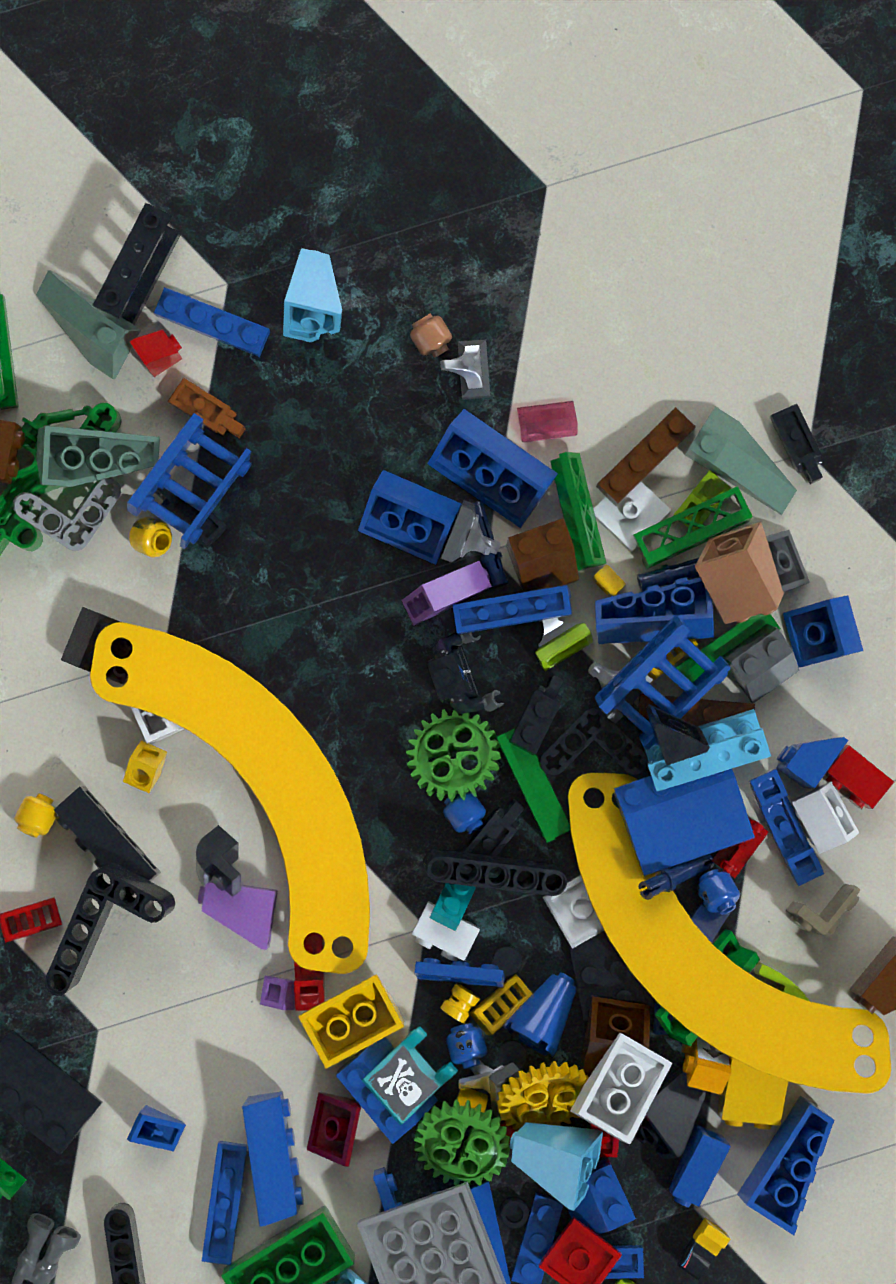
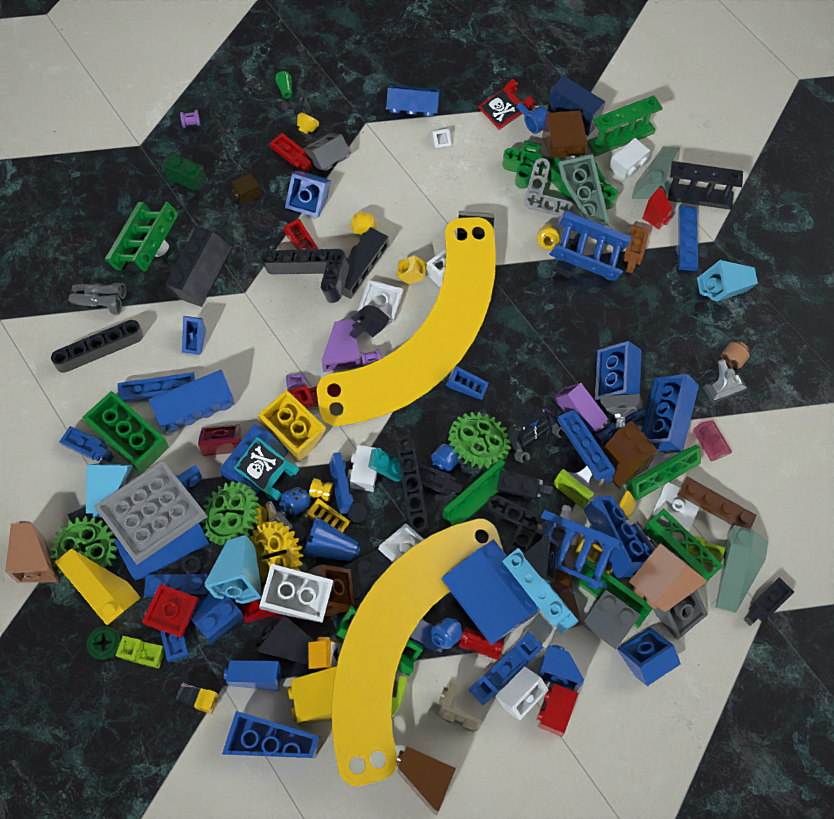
camera: 70 degrees right, 20 degrees down
(46, 356) = (629, 159): none -> white brick
(178, 827) = (383, 297): none -> white plate
(273, 871) = (366, 358): none -> medium lavender bush
(338, 760) = (462, 374): none -> blue slope
(668, 878) = (444, 592): dark blue pin -> none

